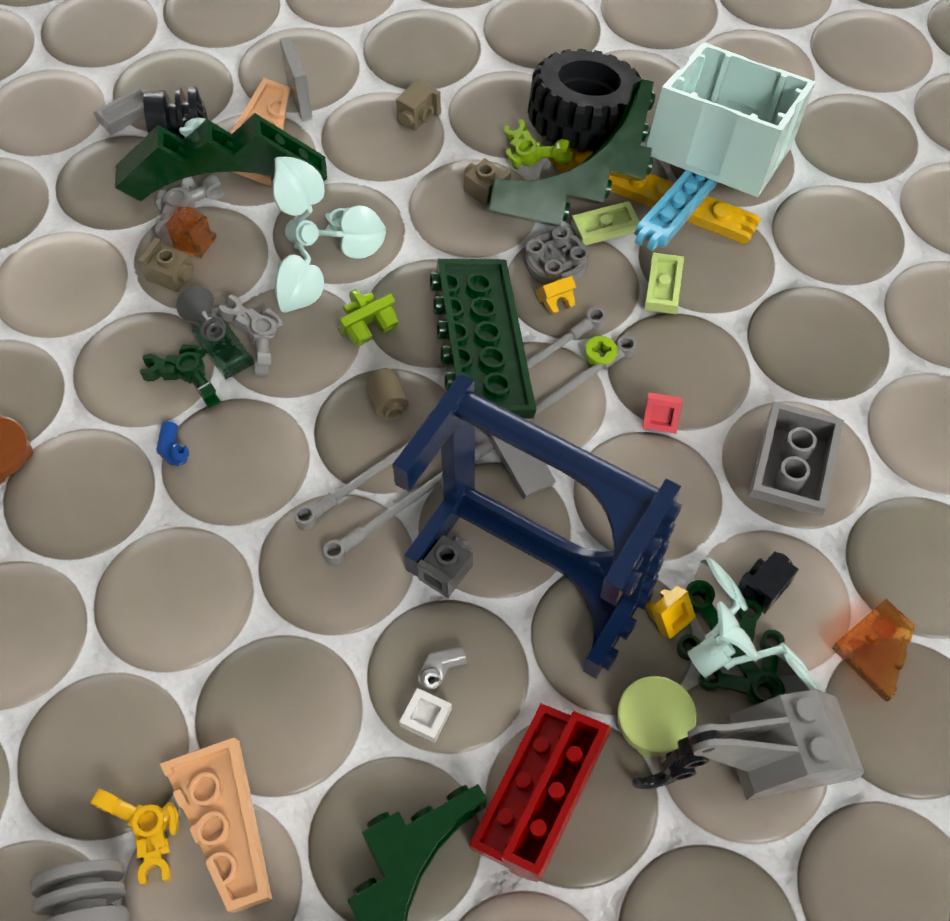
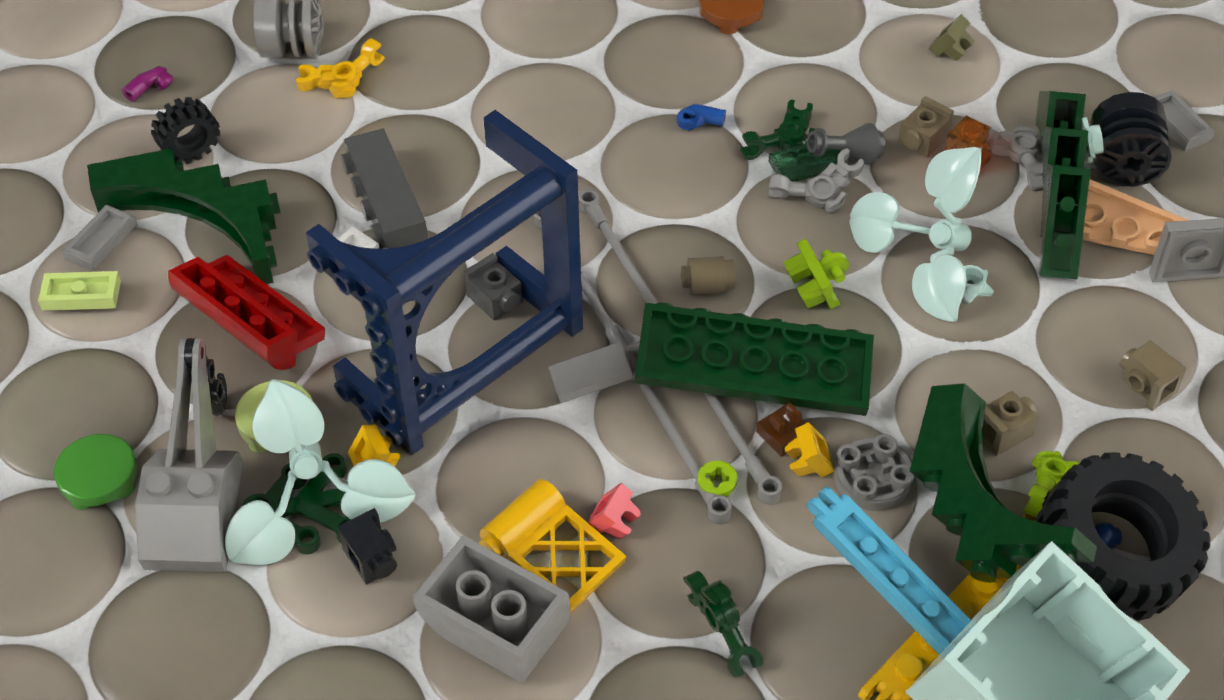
camera: 105 degrees right, 10 degrees down
(38, 261) = (953, 39): none -> olive tile
(219, 807) = (323, 115): light nougat wing -> none
(338, 708) = (384, 190): none -> dark grey brick
(535, 318) = (780, 427): none -> reddish brown tile
(605, 223) = (916, 529): yellowish green plate -> none
(664, 283) = (803, 569): yellowish green plate -> none
(698, 465) = (531, 520): none -> yellow piece
(731, 316) = (723, 617): none -> dark green piece
(781, 867) = (96, 470): none -> bright green tile
(878, 648) = (255, 628): clear orange wing -> none

